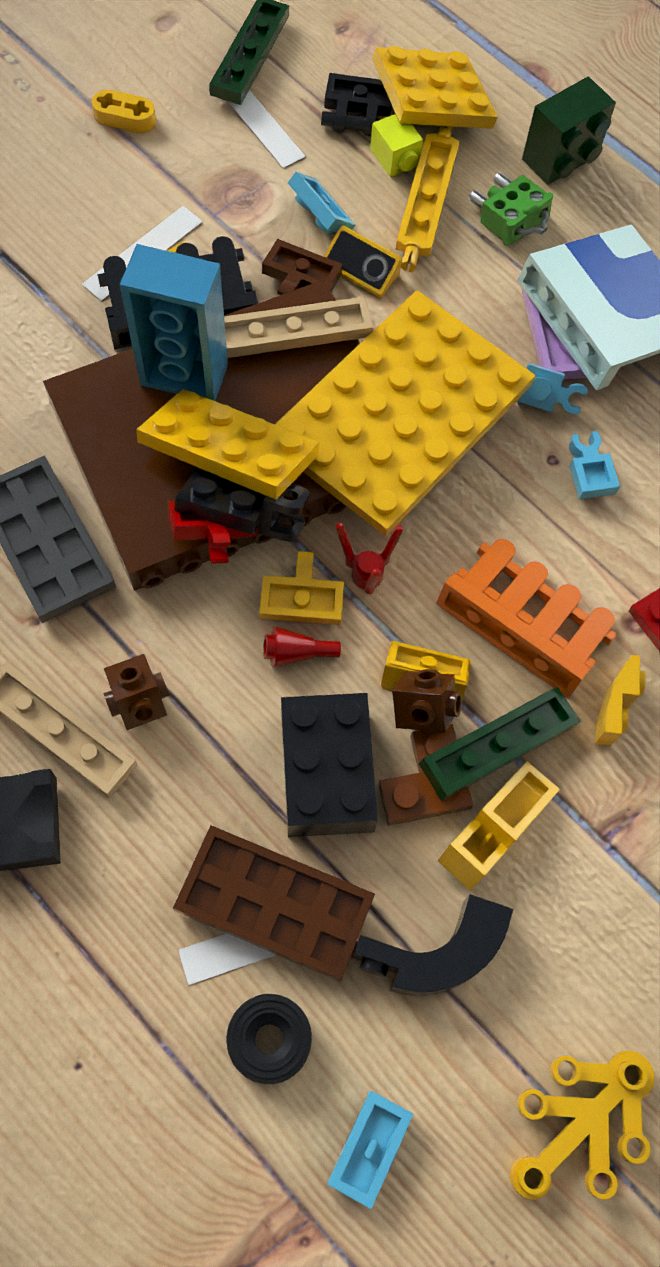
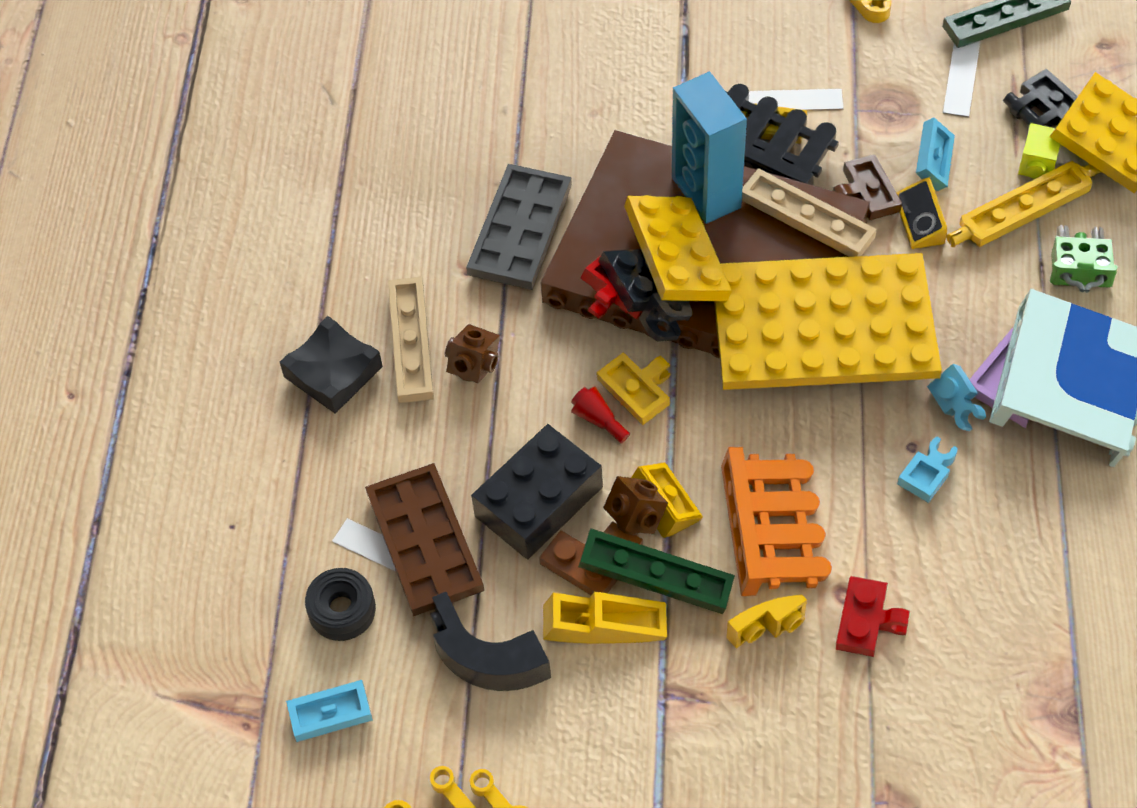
camera: 55 degrees right, 10 degrees down
(368, 565) = (697, 404): red plant -> none

